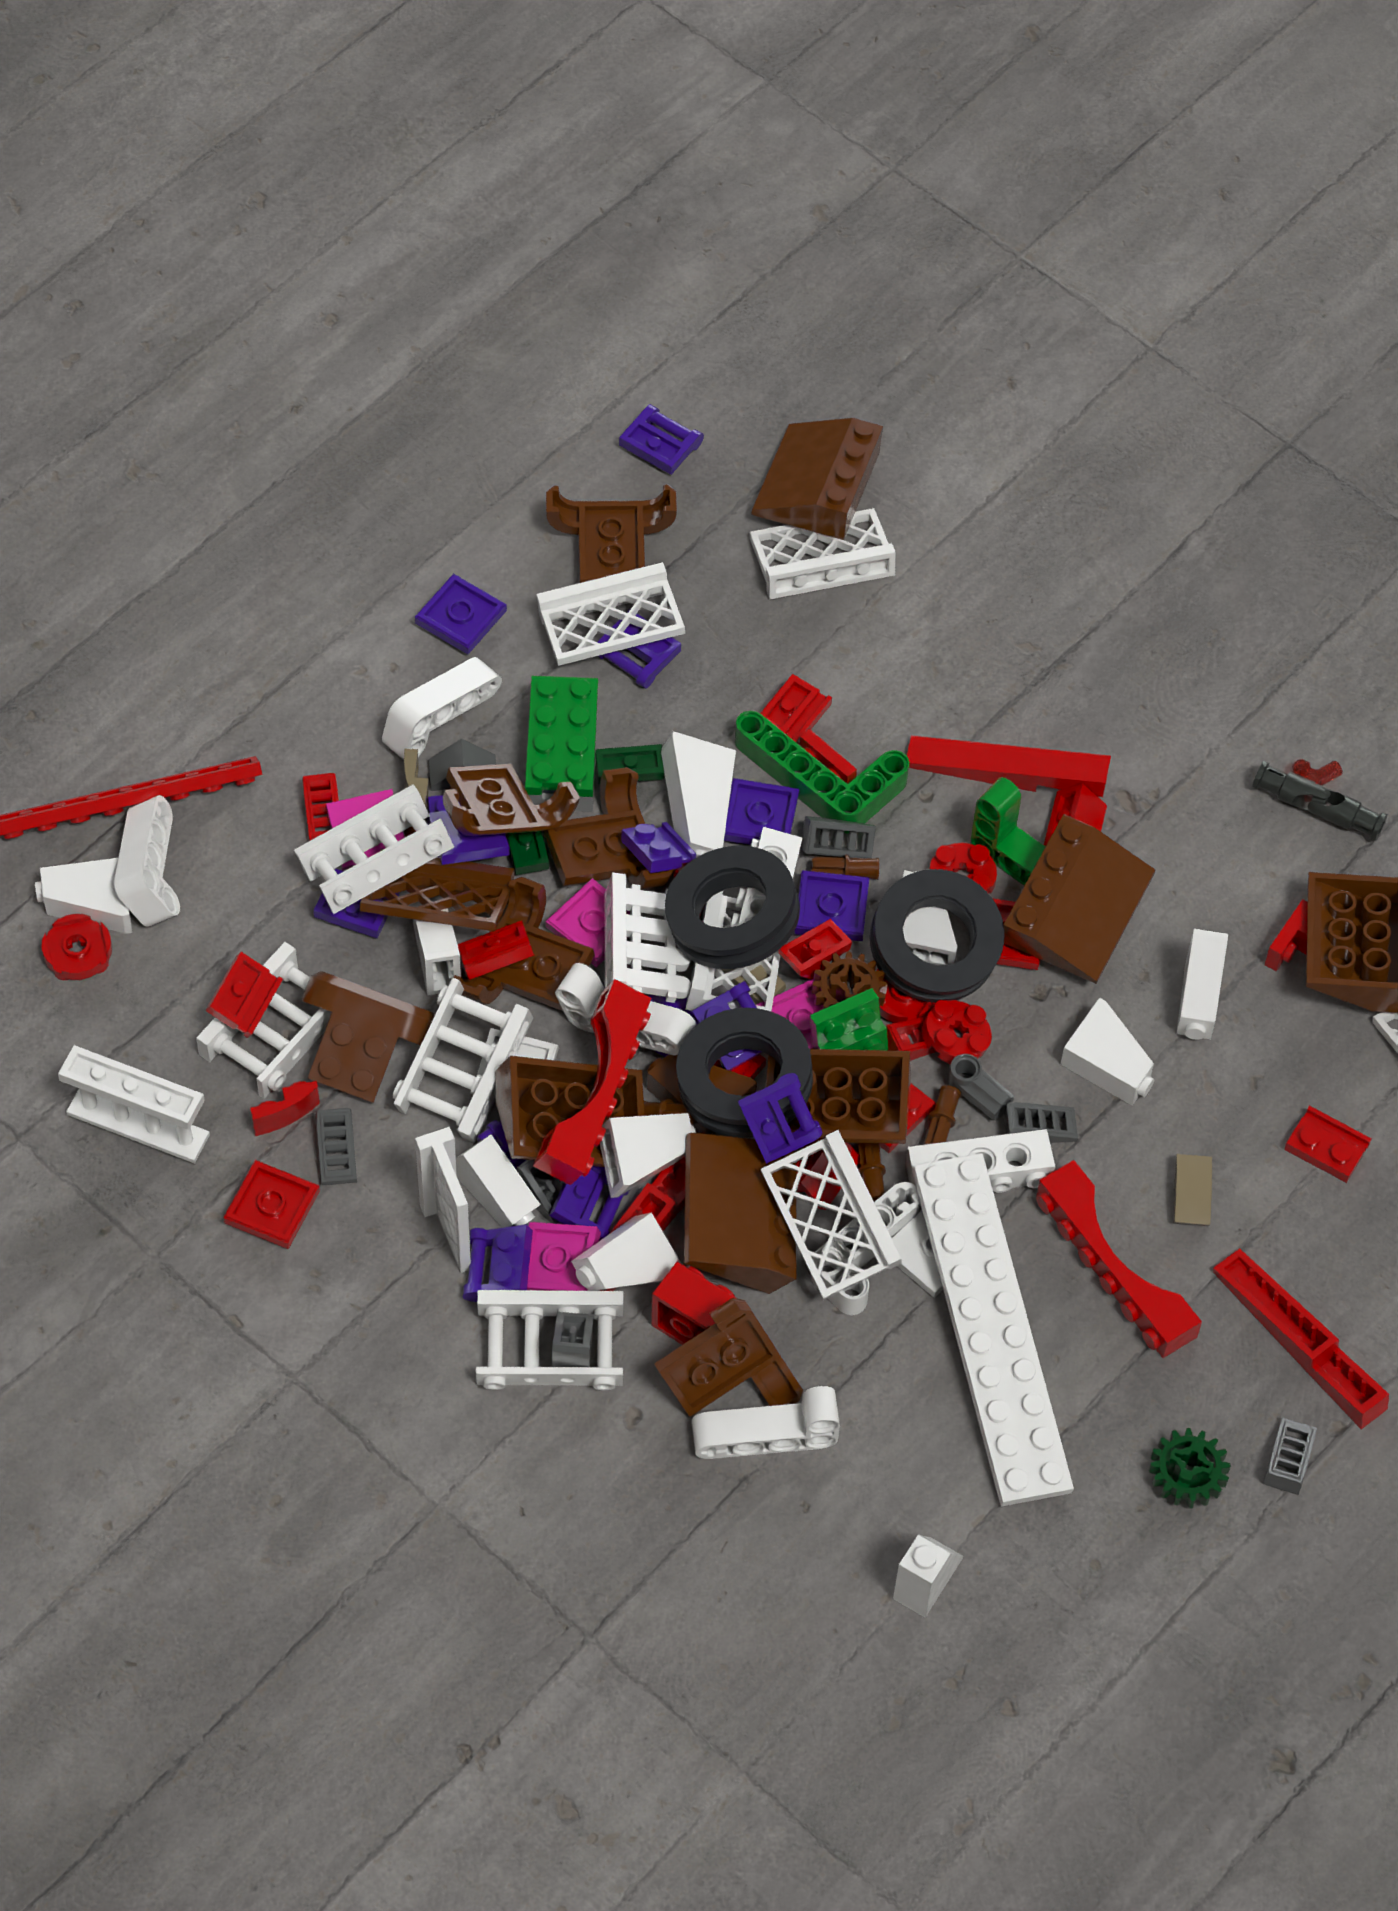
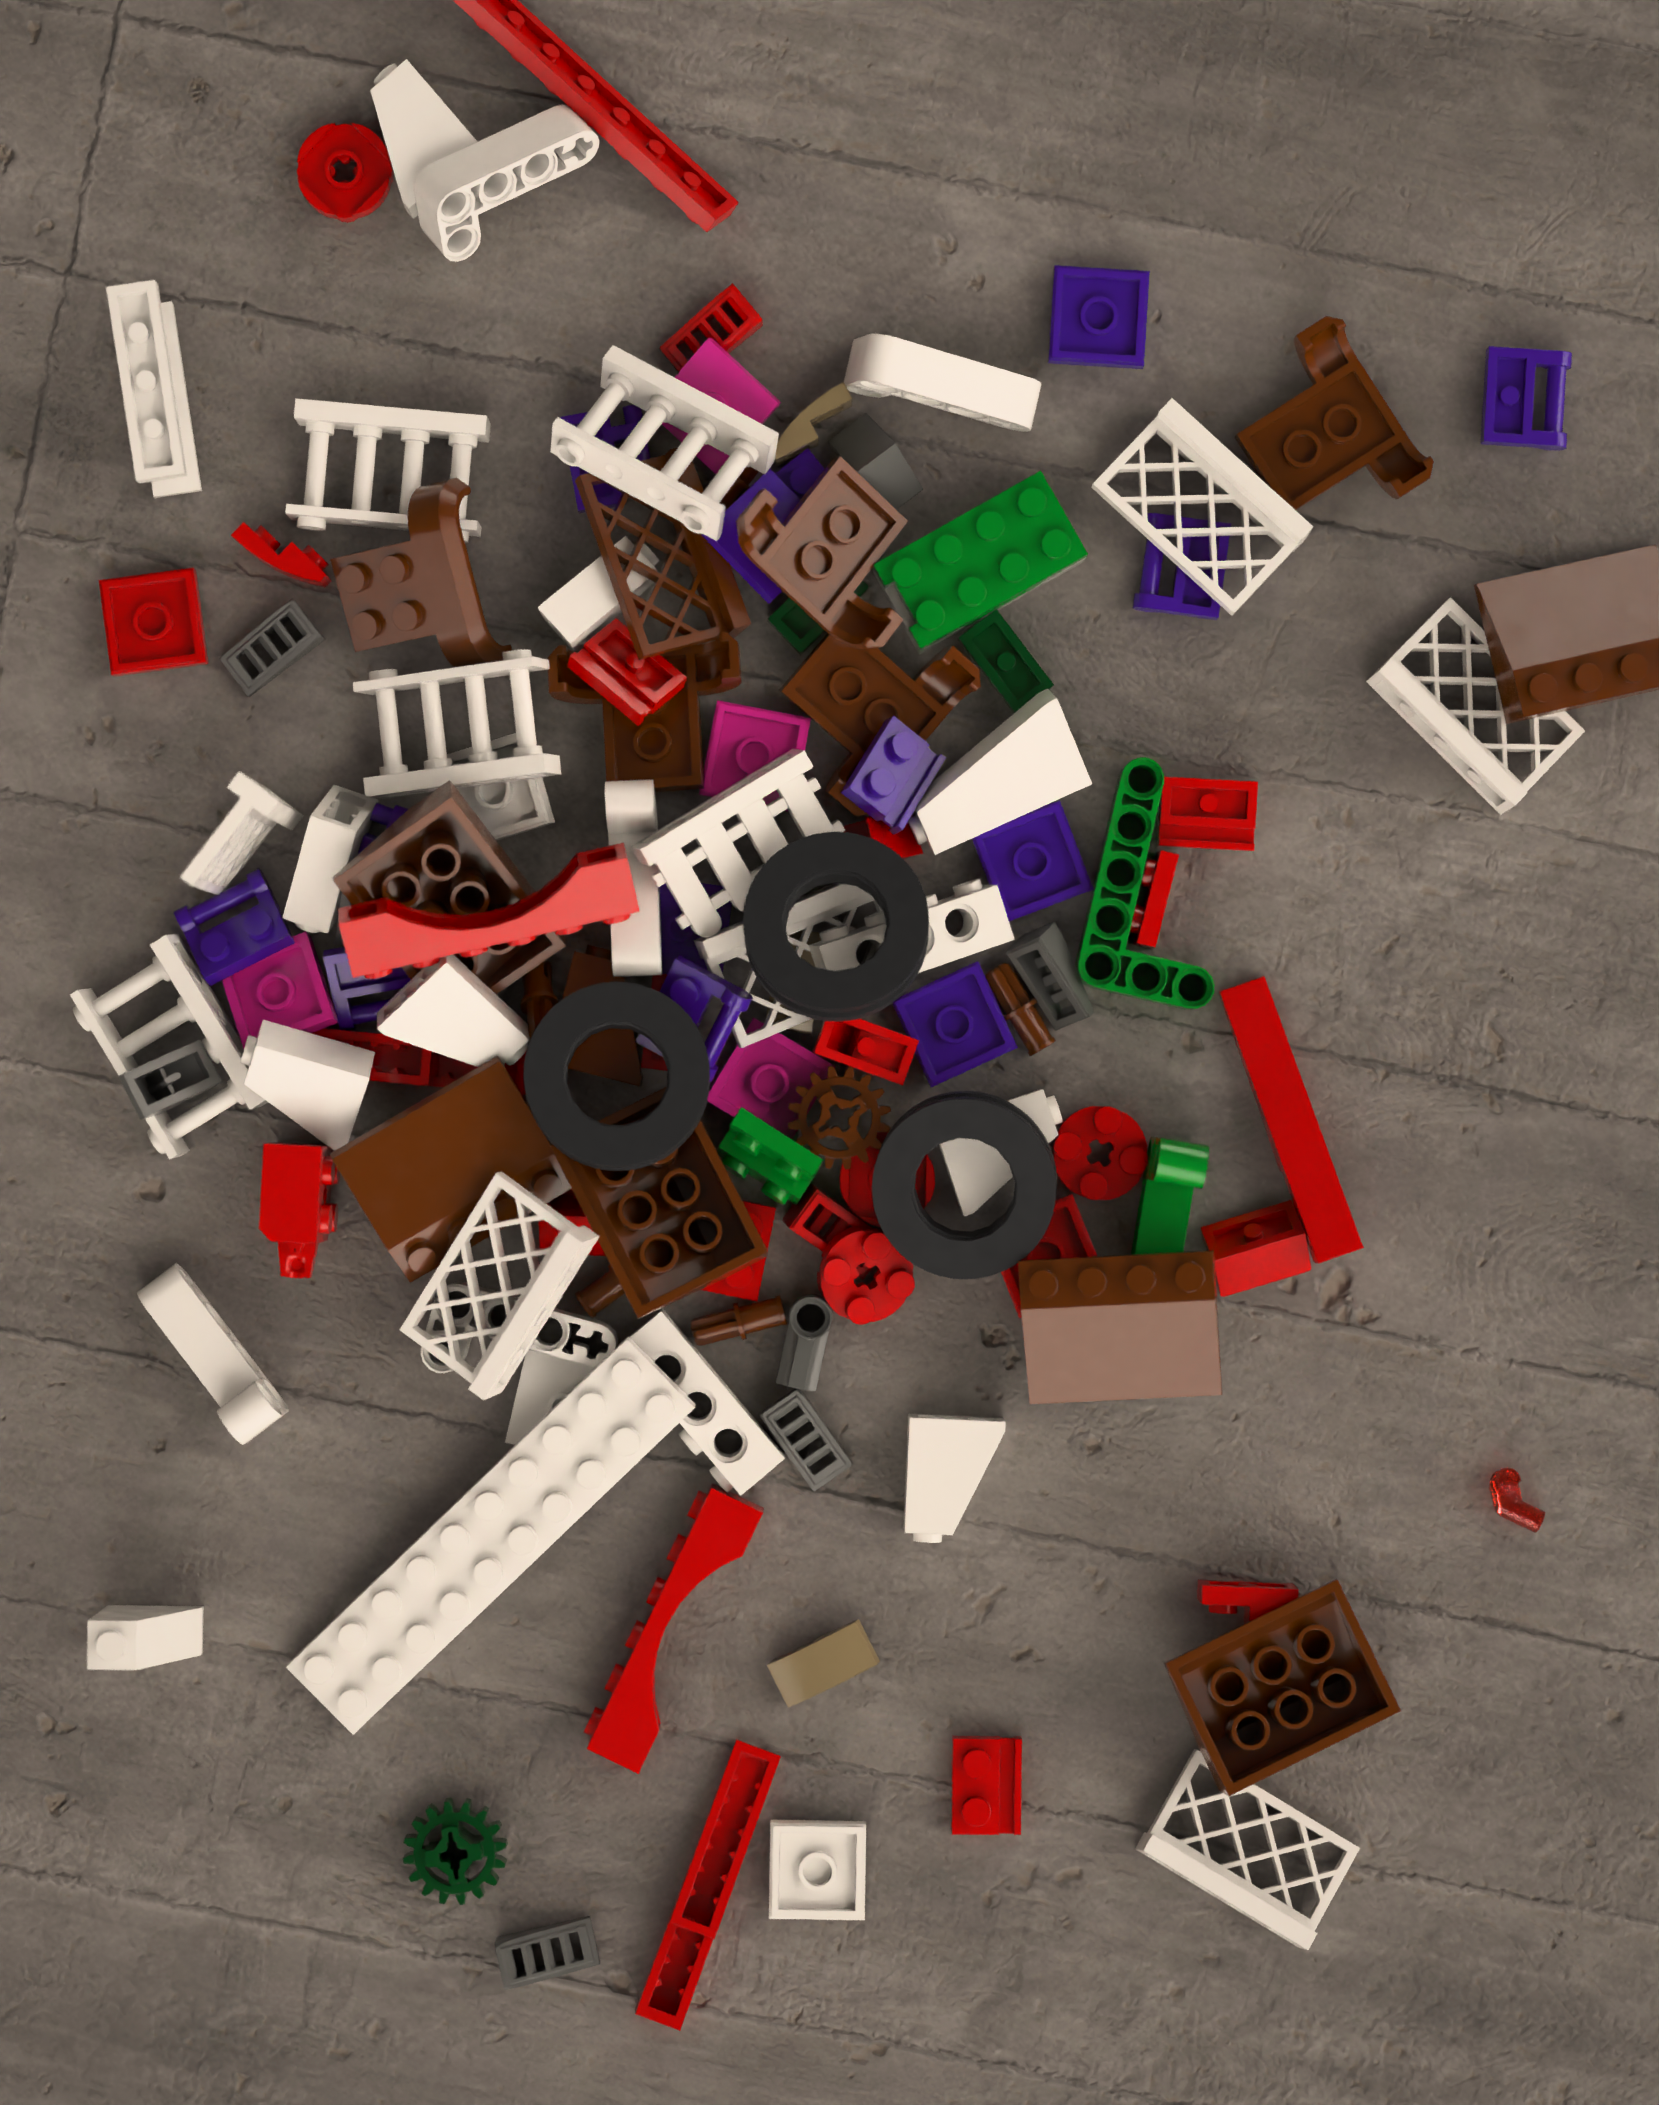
camera: 60 degrees right, 30 degrees up
(244, 994) = (375, 419): red plate -> none
(725, 1358) = (256, 1267): reddish brown piece -> none
(769, 1123) = (545, 1160): dark purple plate -> none
(1202, 984) = (1099, 1532): white slope -> none
(1296, 791) = (1471, 1502): pearl dark grey piece -> none
(1327, 1265) = (817, 1869): none -> white plate

